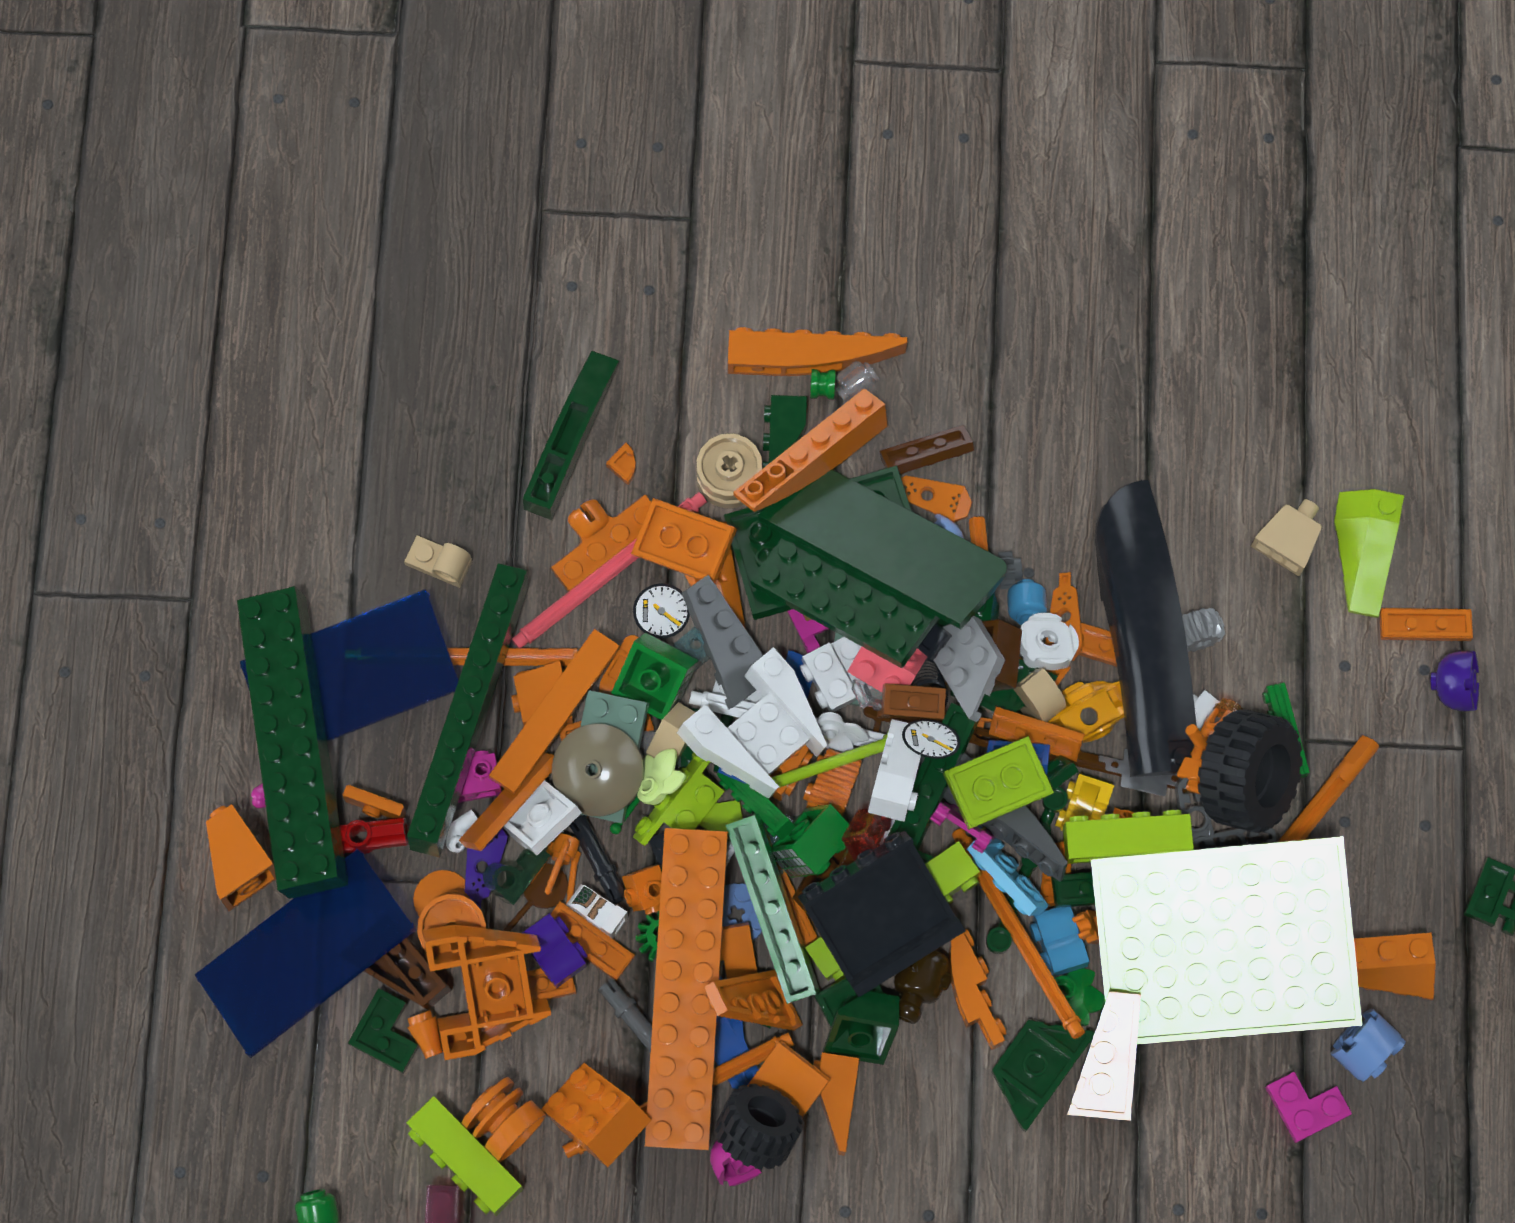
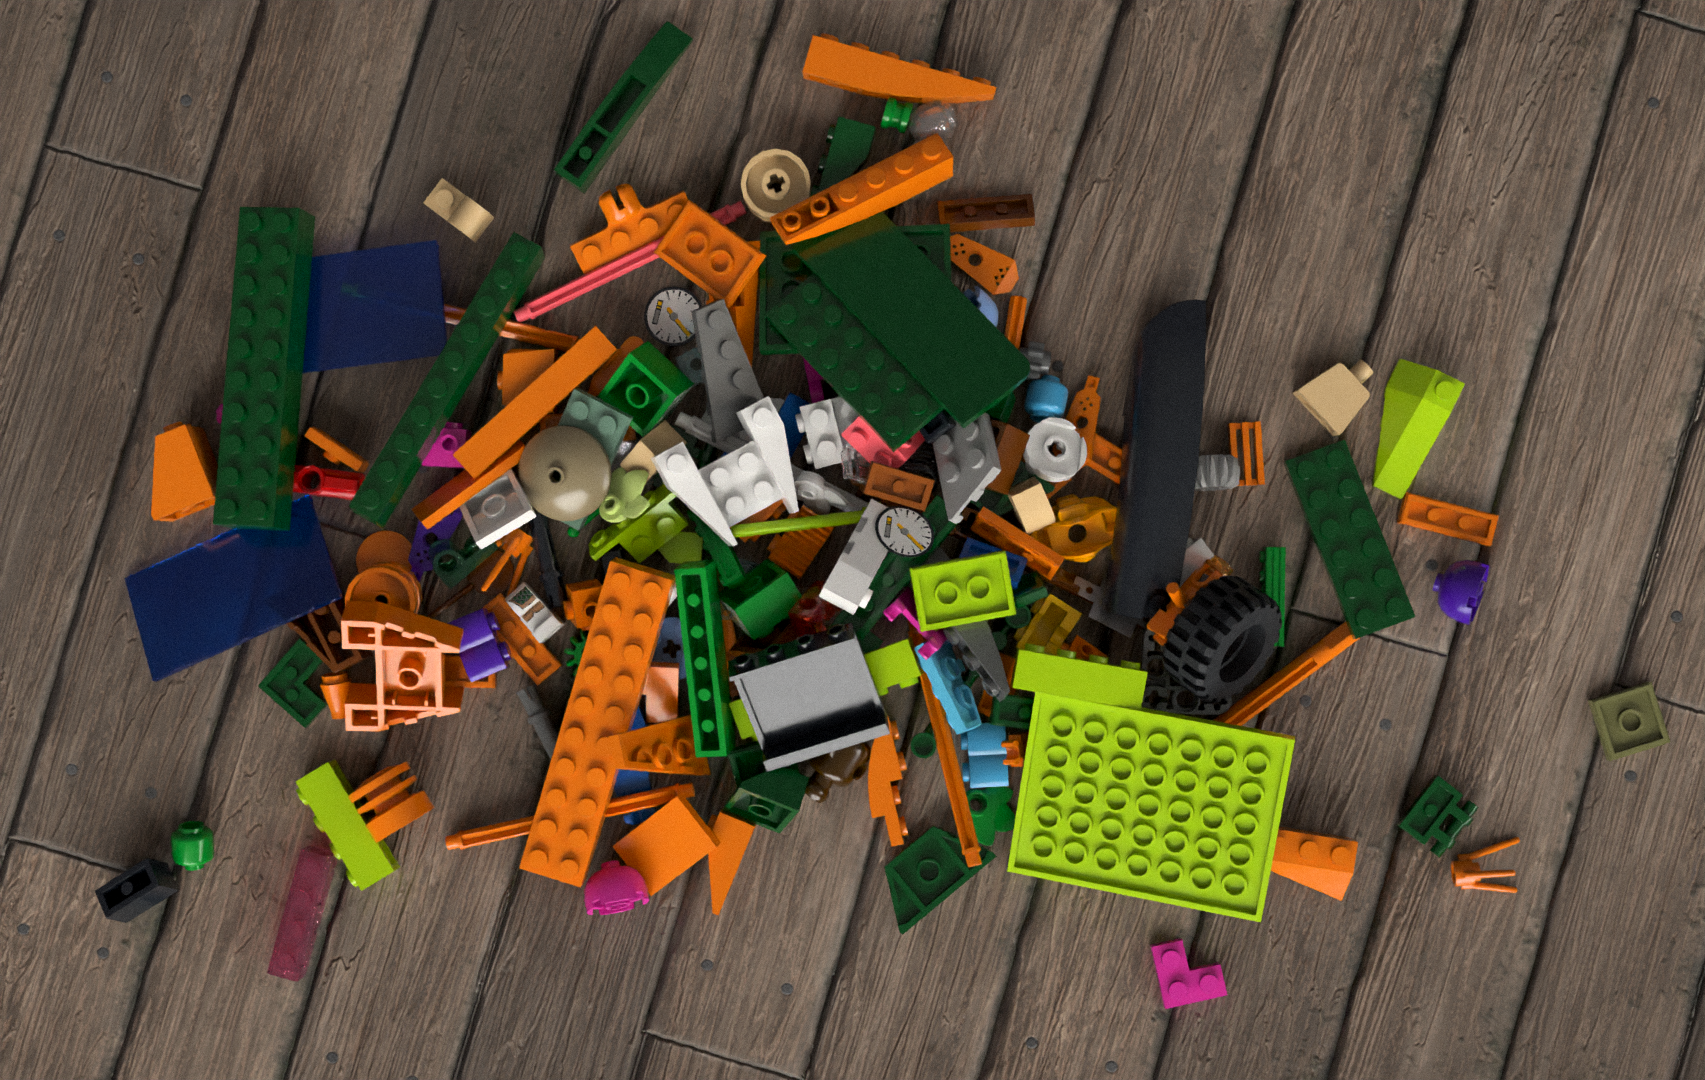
camera: 15 degrees right, 15 degrees up
(457, 830) = (415, 495): white arm -> none
(596, 1114) = (480, 823): orange brick -> none
(623, 464) = (671, 150): orange tile -> none
(758, 1126) = (617, 889): black tyre -> none
(1109, 1068) = (1000, 893): wing -> none
(1227, 584) = (1258, 451): none -> orange tile
(1341, 662) = (1349, 539): none -> dark green plate
(1367, 1046) = (1263, 942): medium blue brick -> none

